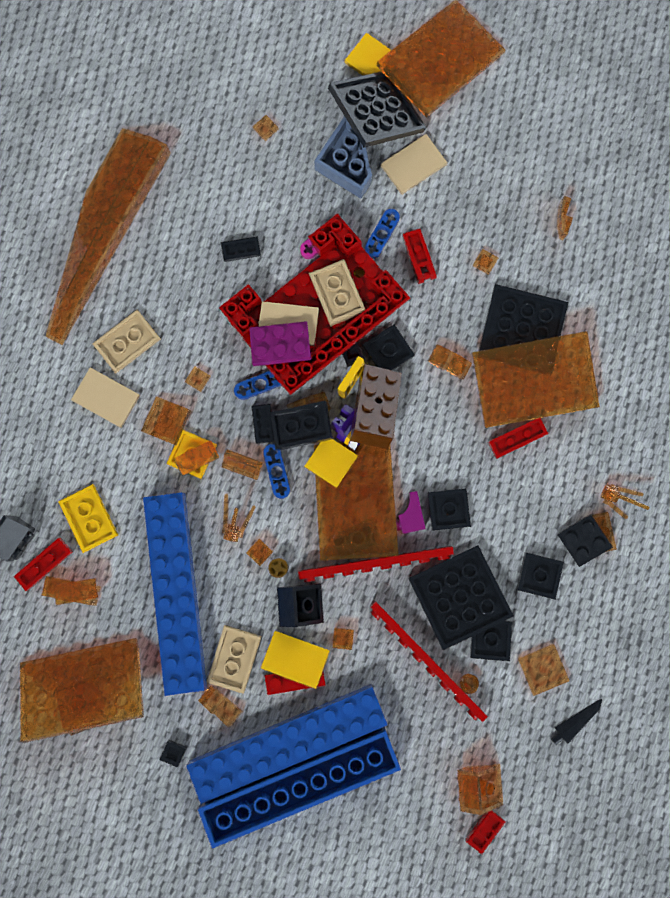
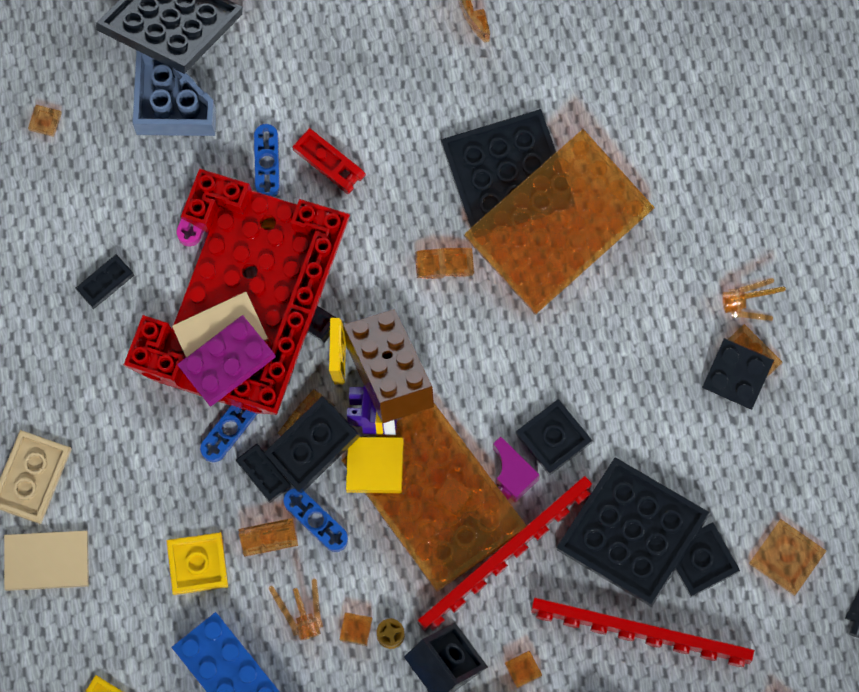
camera: 25 degrees left, 10 degrees down
(166, 420) = (140, 542): clear orange tile -> none
(196, 458) = (207, 562): clear orange slope -> none
(197, 379) = (148, 468): clear orange tile -> none
(337, 292) = (257, 261): tan tile -> none
(388, 349) = (361, 291): black plate -> none
(413, 164) = (254, 57): tan tile -> none
(469, 683) = (709, 627): clear orange plate -> none
(485, 261) = (412, 120): clear orange tile -> none
(517, 438) = (582, 303): red plate -> none
(540, 575) = (712, 448): black plate -> none

